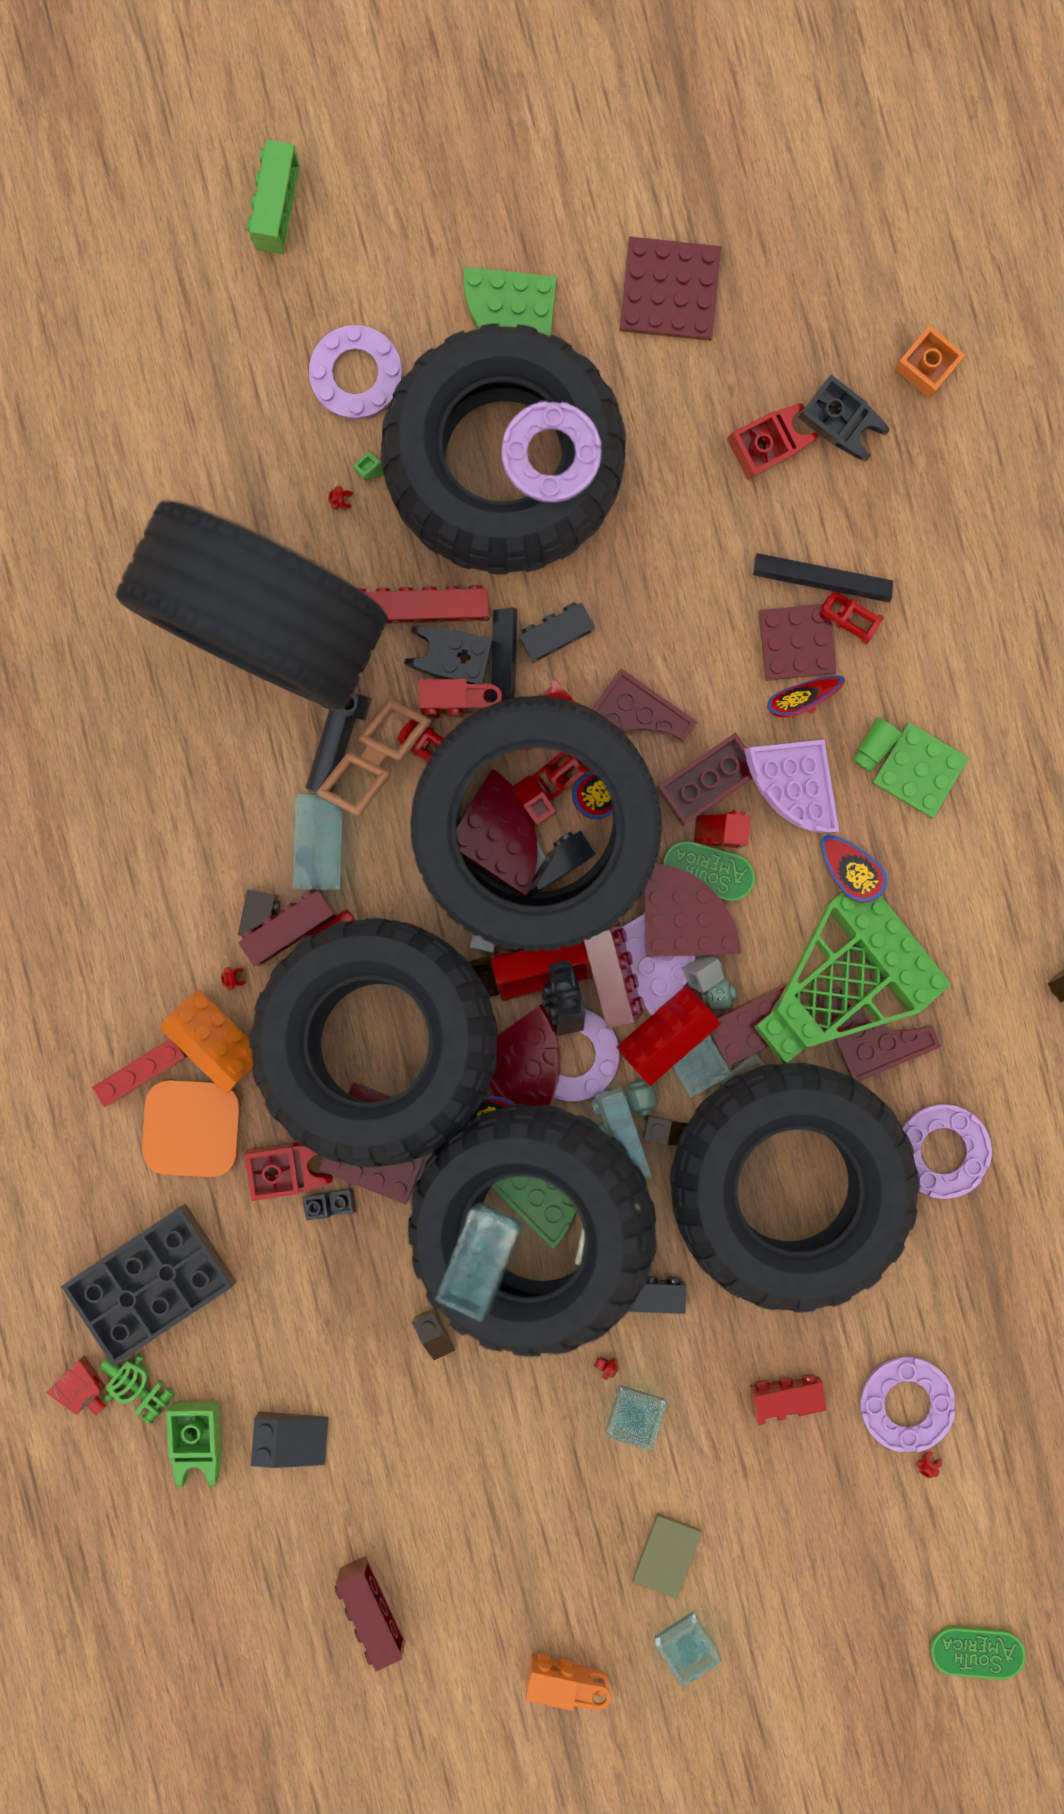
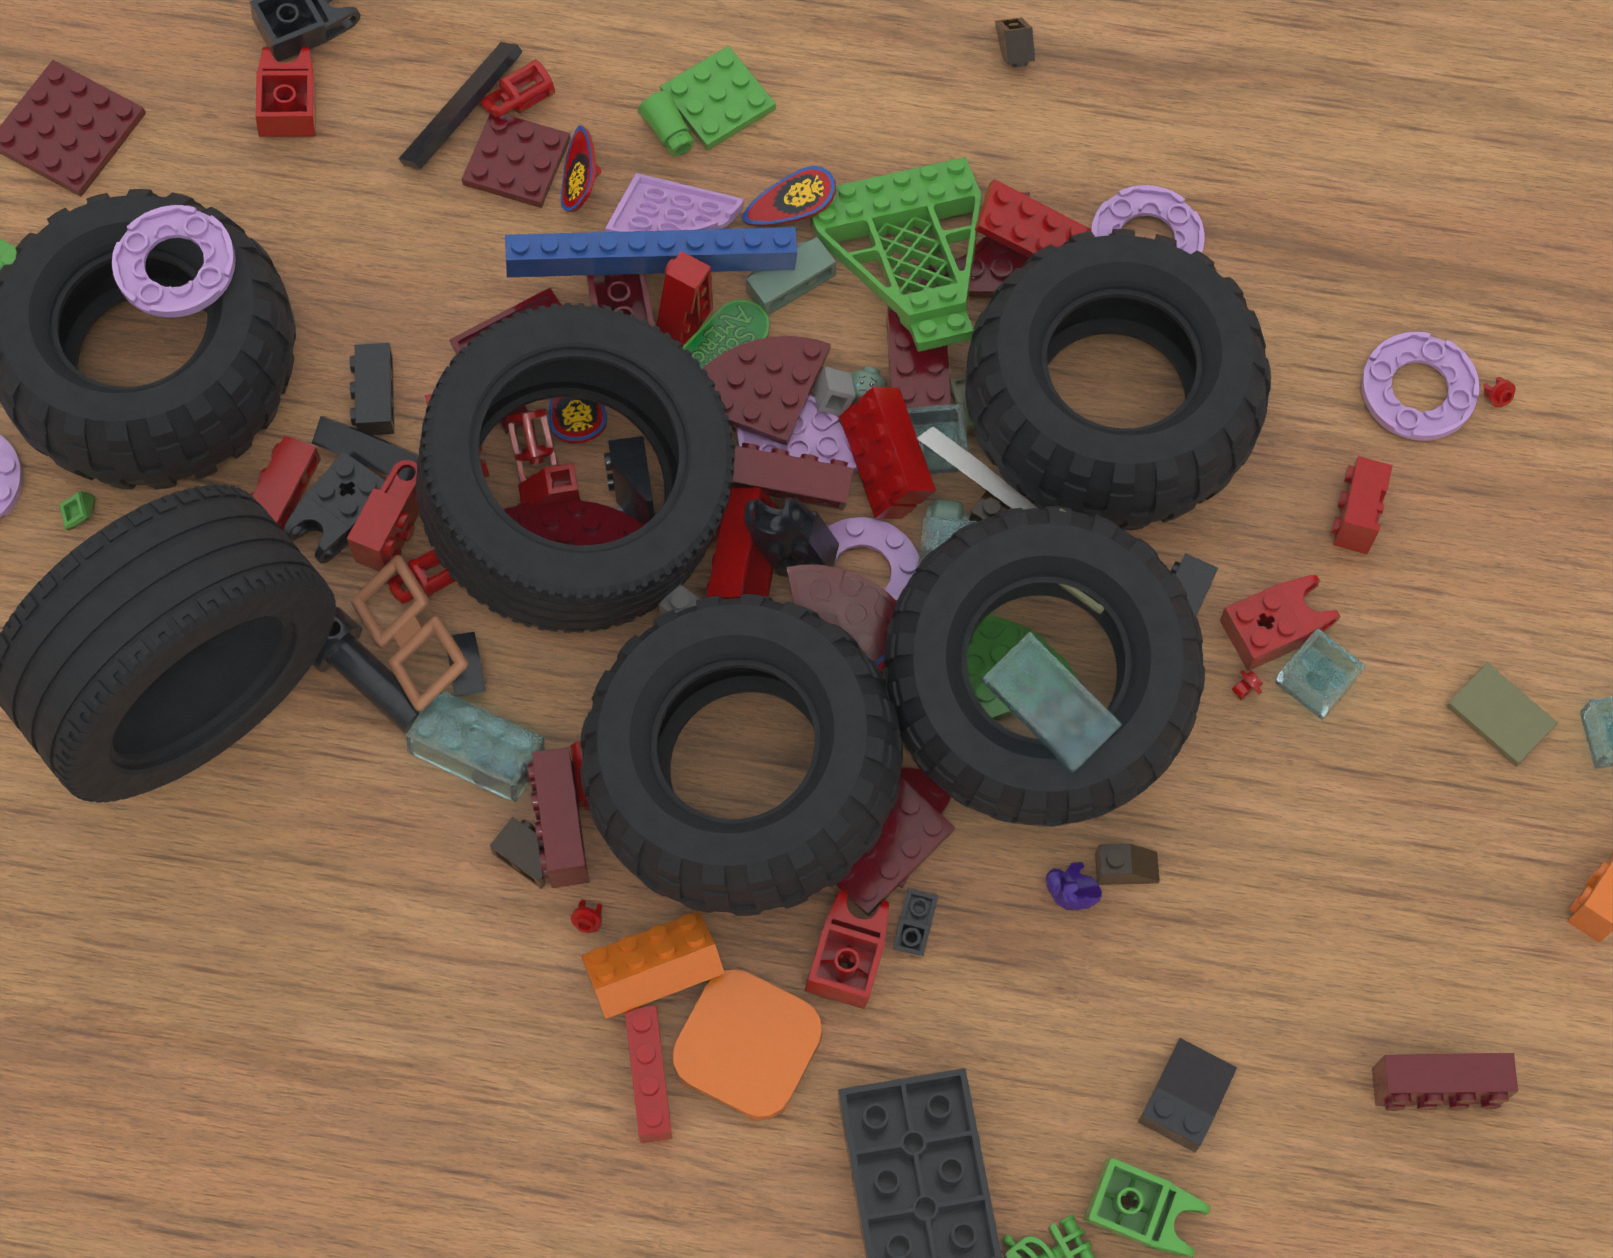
camera: 65 degrees left, 20 degrees down
(383, 801) = (471, 678): none -> black slope
(399, 1305) = (1072, 888): none -> dark purple hair
(668, 1377) = (1283, 621): none -> red brick
(677, 1120) = (973, 468): none -> white sticker
(748, 789) = (648, 251): none -> blue brick
(788, 896) = (779, 287): none -> sand green brick
(906, 1063) = (1022, 221): none -> red plate

